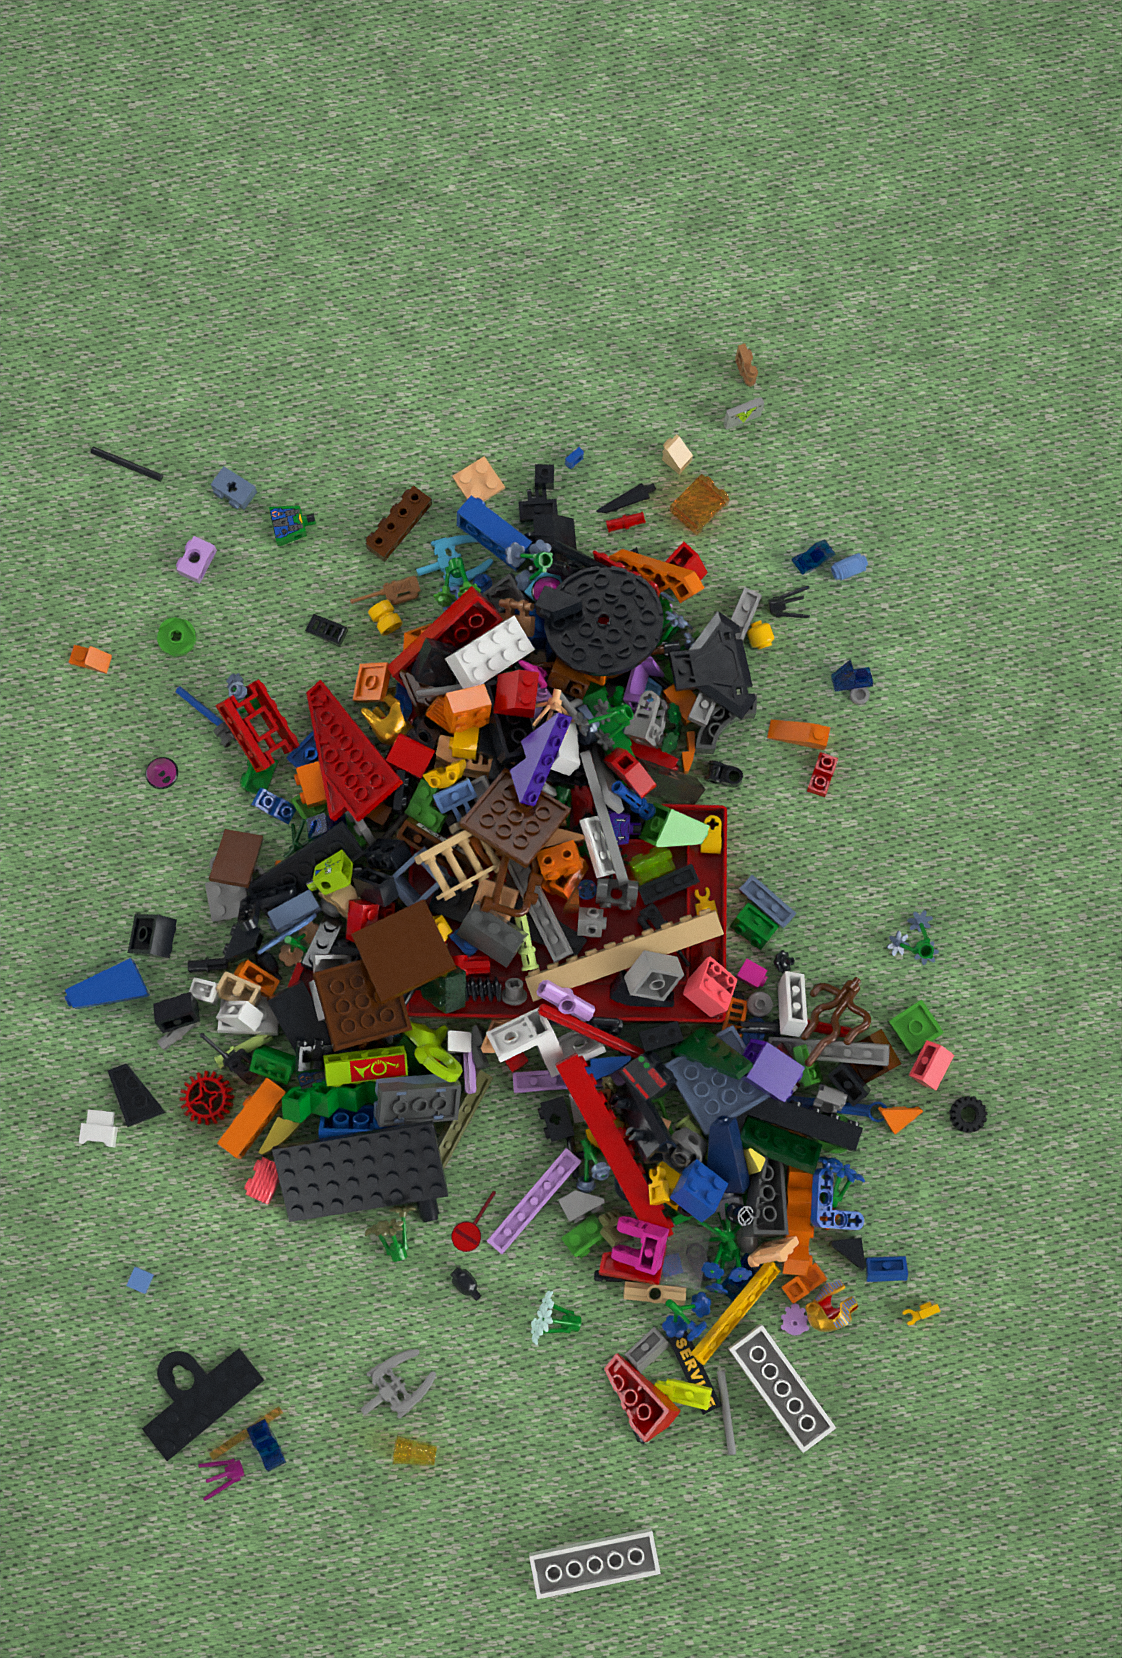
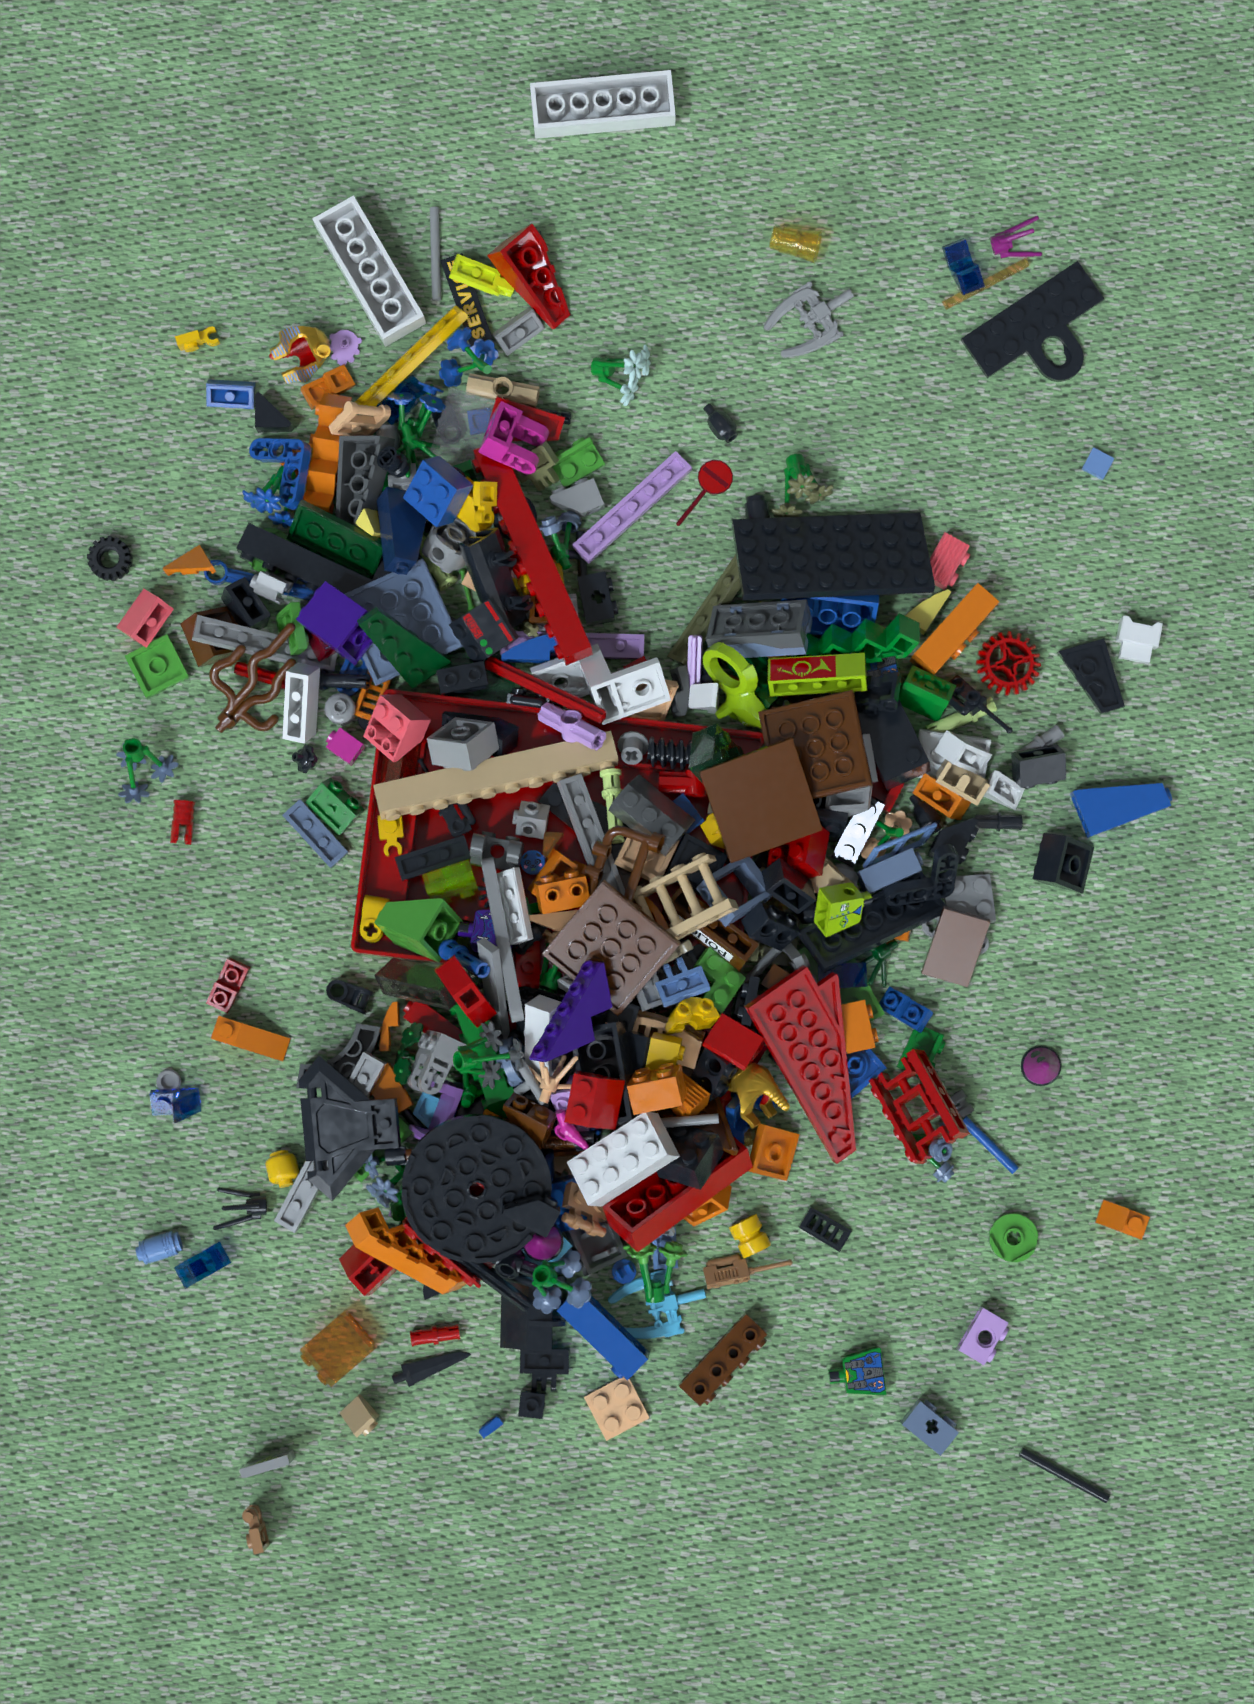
camera: 170 degrees left, 5 degrees up
(877, 905) = (182, 815): none -> red hinge

